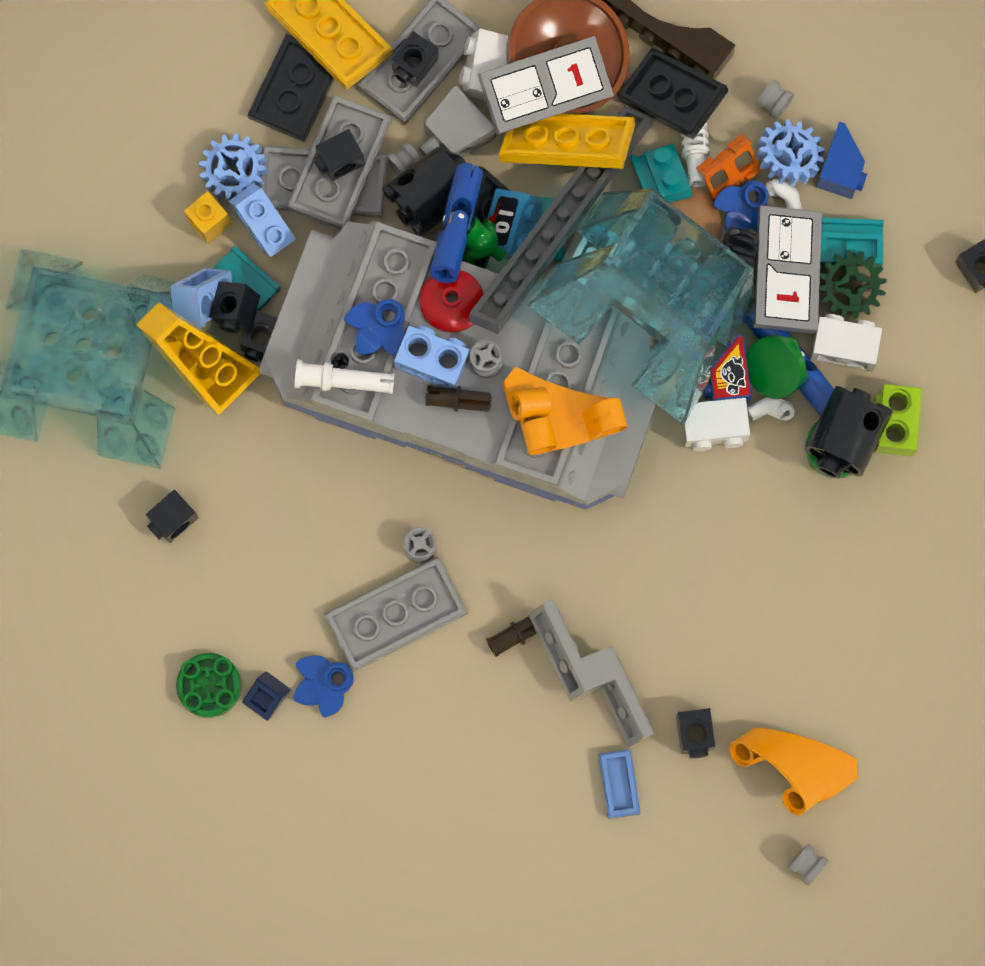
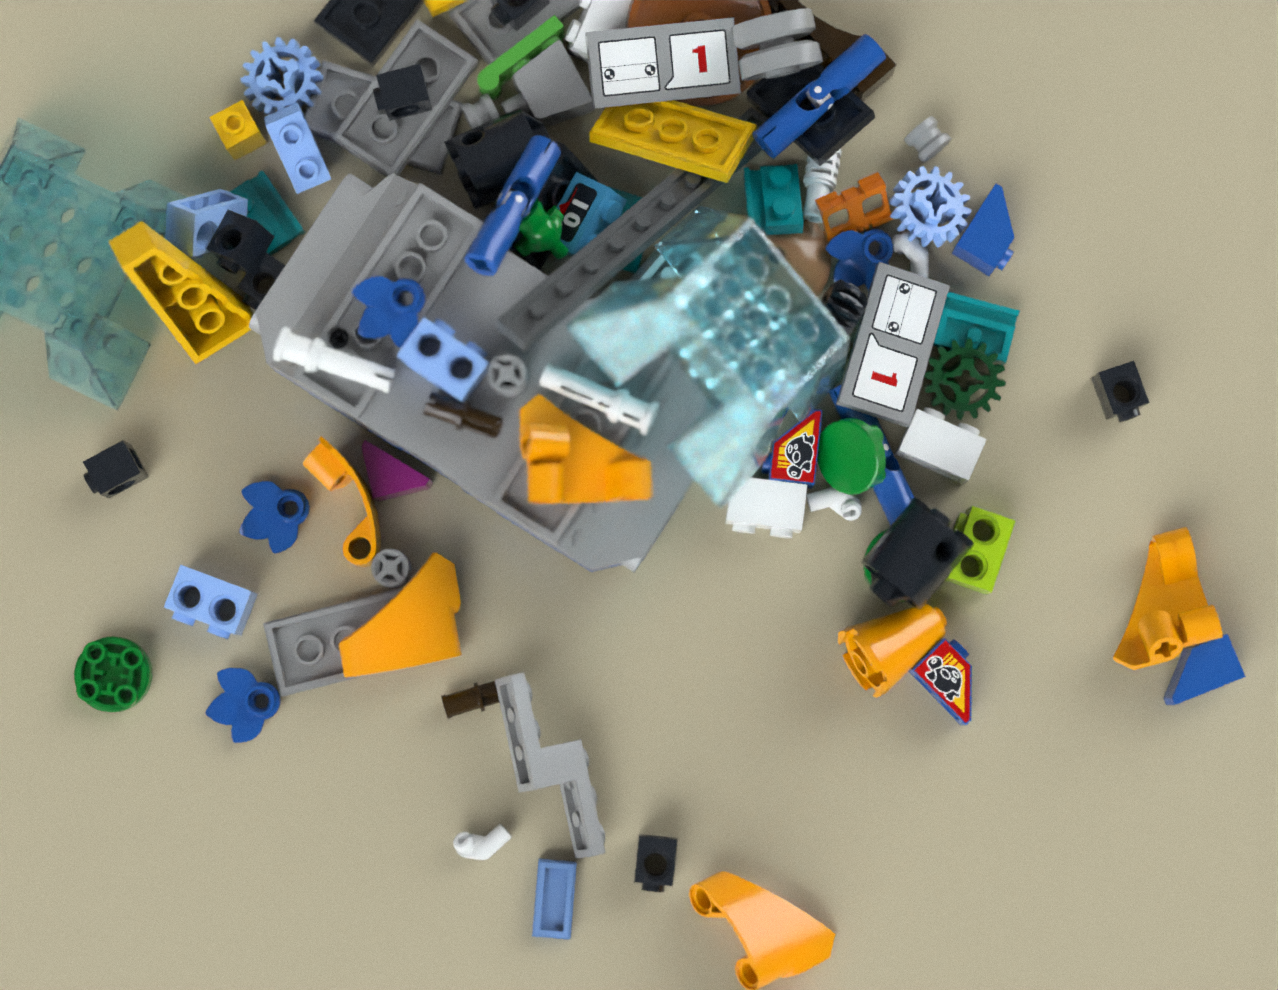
camera: 15 degrees right, 5 degrees up
(266, 695) = (176, 700): dark blue slope -> none
(279, 597) = (212, 595): none -> light blue brick
(306, 526) = (269, 515): none -> blue plate
(354, 473) = (335, 473): none -> light orange panel
(401, 468) = (389, 476): none -> magenta slope
(425, 106) = (505, 66): none -> bright green plate
(446, 315) = (481, 315): red dish -> none
(448, 587) = (411, 627): none -> light orange panel
(548, 755) = (479, 846): none -> white arm
(581, 361) = (617, 405): none -> white pin
(634, 47) = (775, 38): none -> light grey wheel
(688, 71) = (834, 83): none -> blue piece
(844, 513) = (891, 645): none -> light orange cone
(898, 529) = (947, 678): none -> slope

